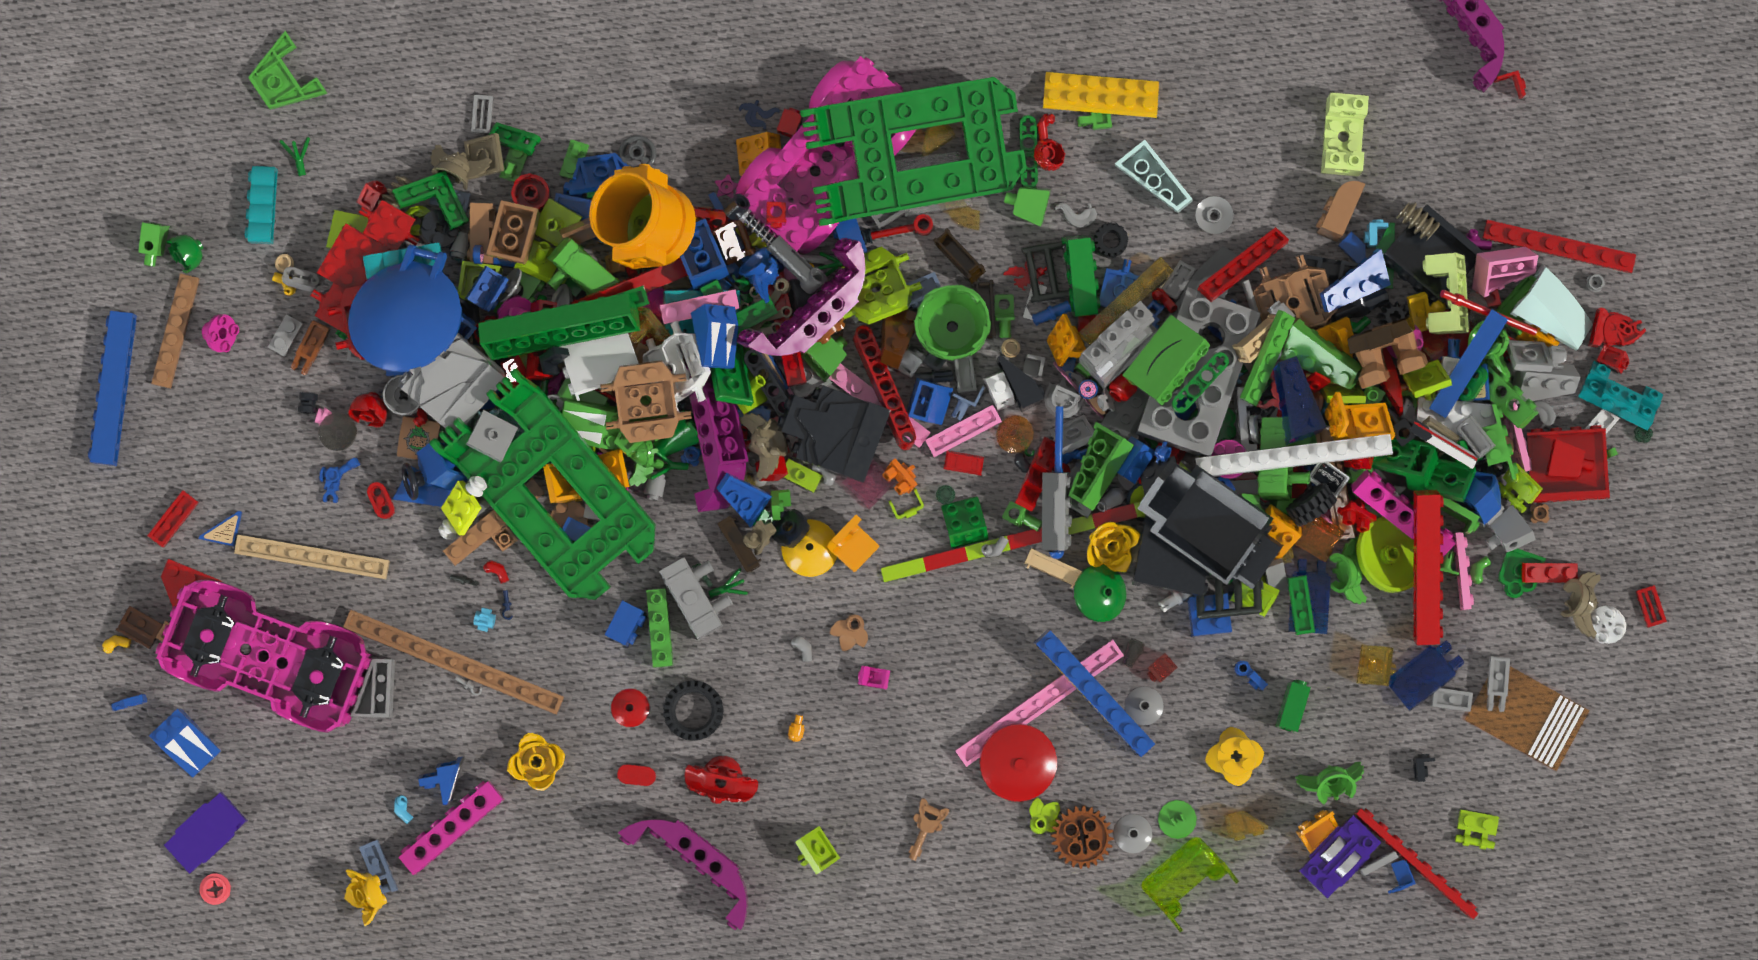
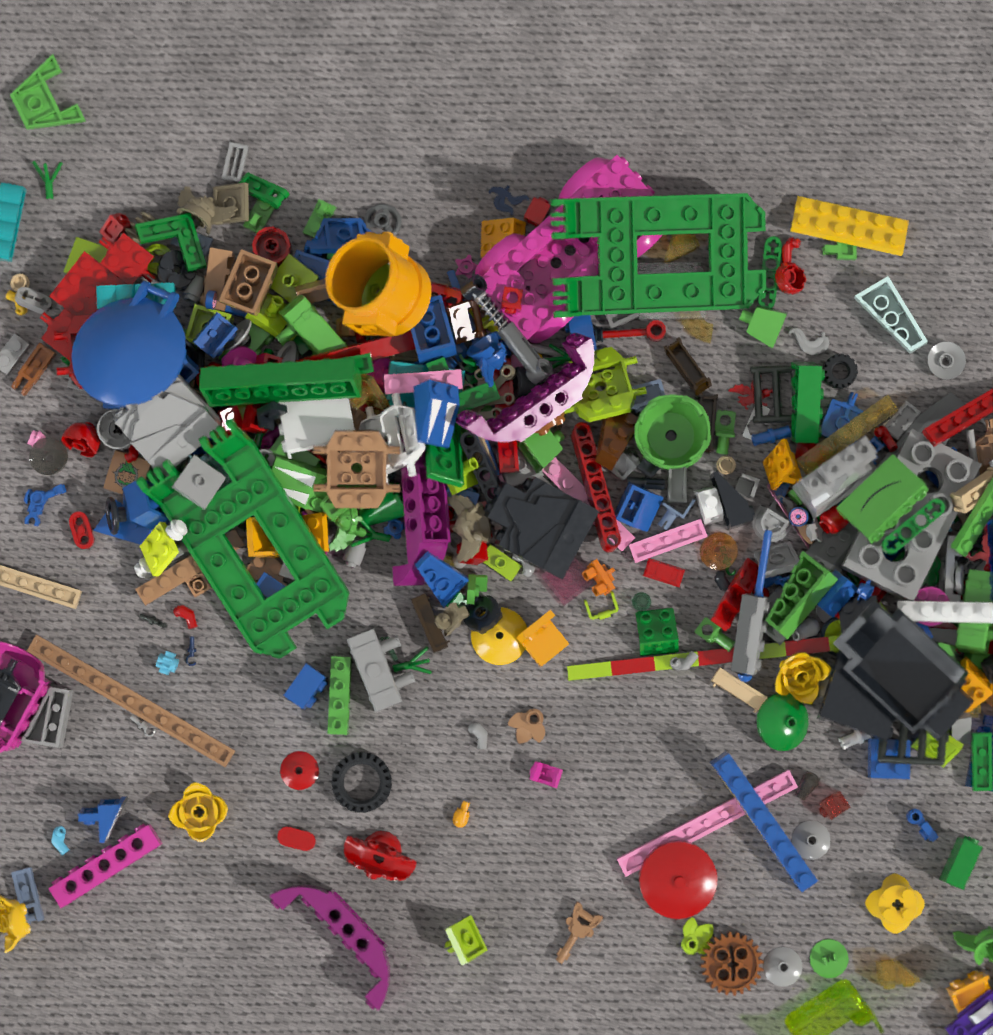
camera: 10 degrees right, 0 degrees up
(306, 407) = (23, 423): black wheel -> none

